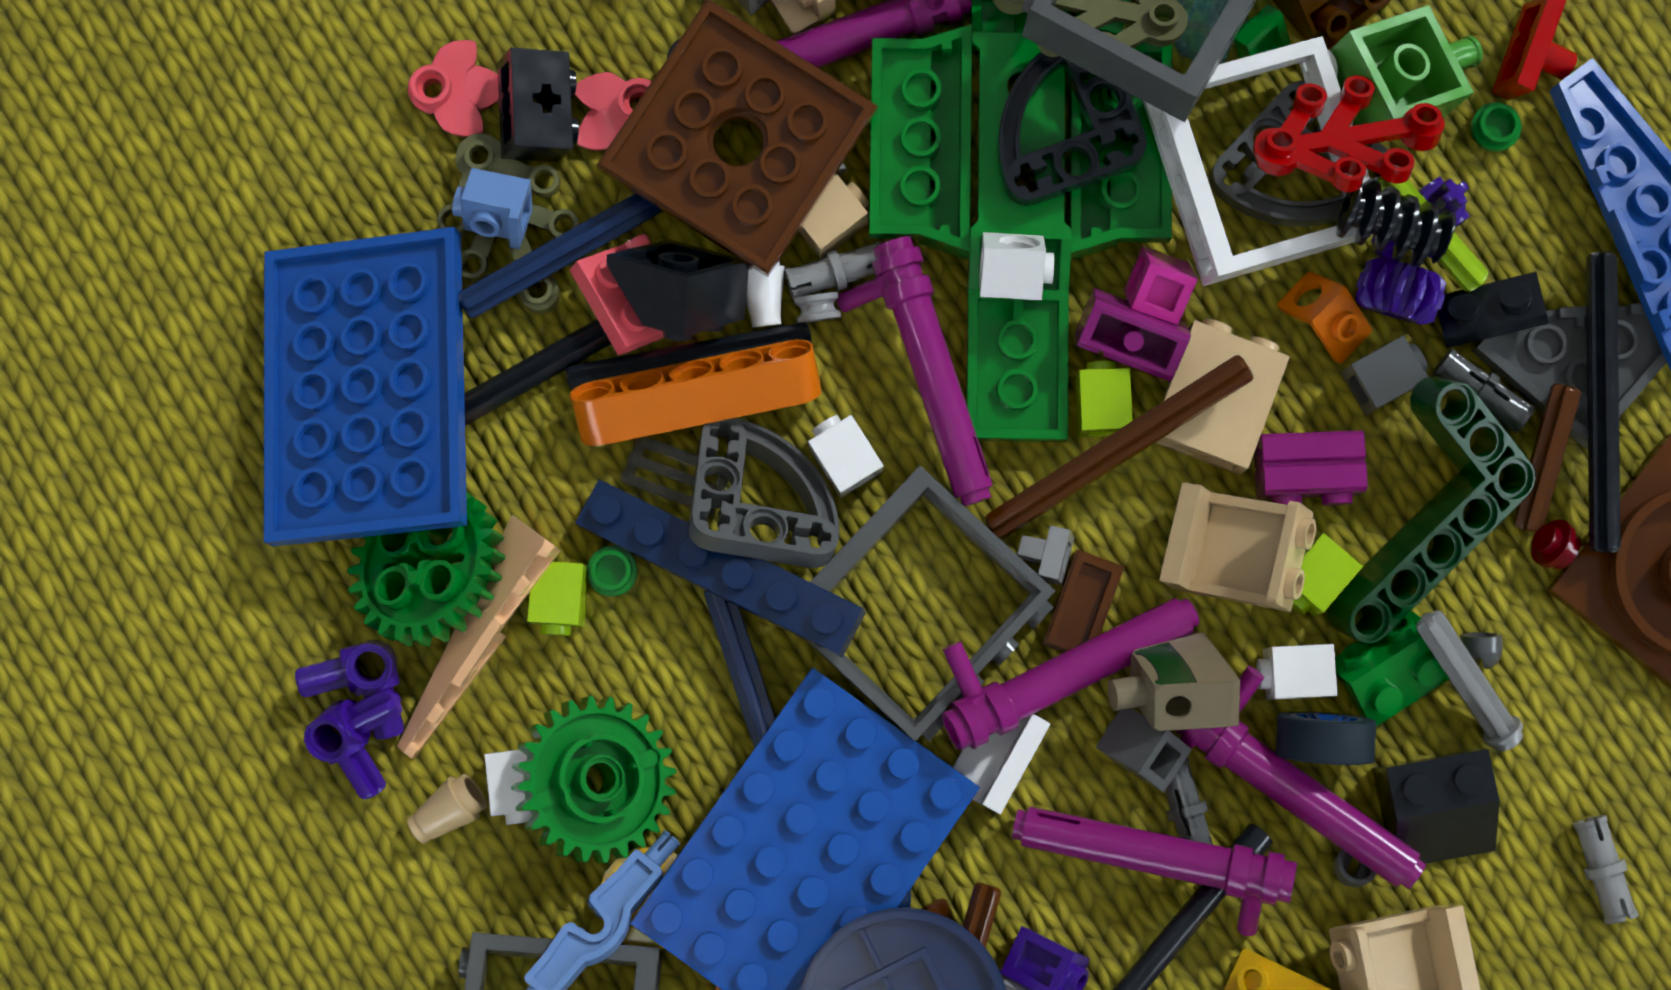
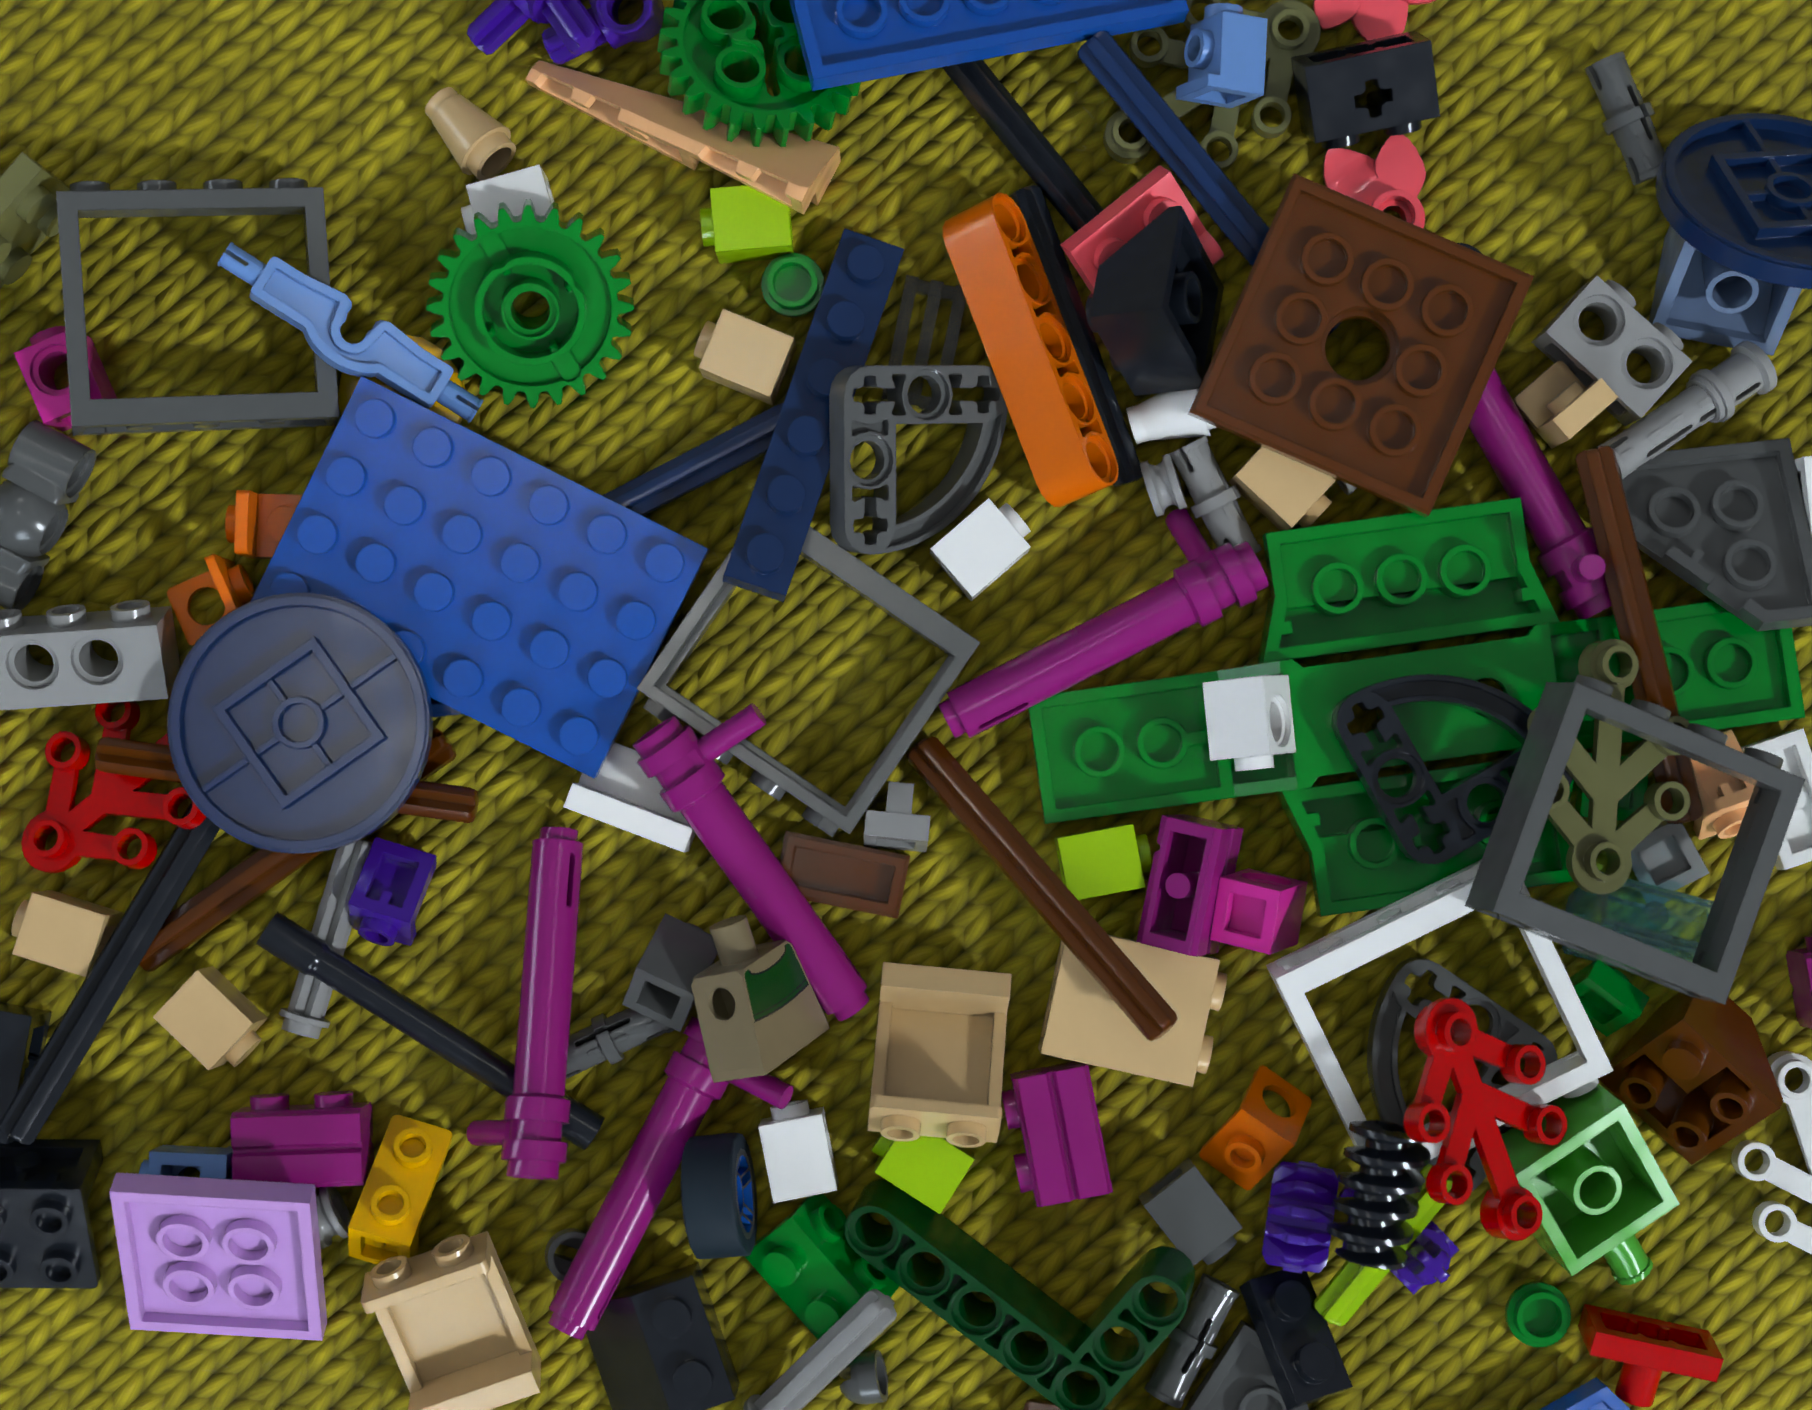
camera: 80 degrees right, 5 degrees up
(662, 616) = (745, 355): none -> tan brick

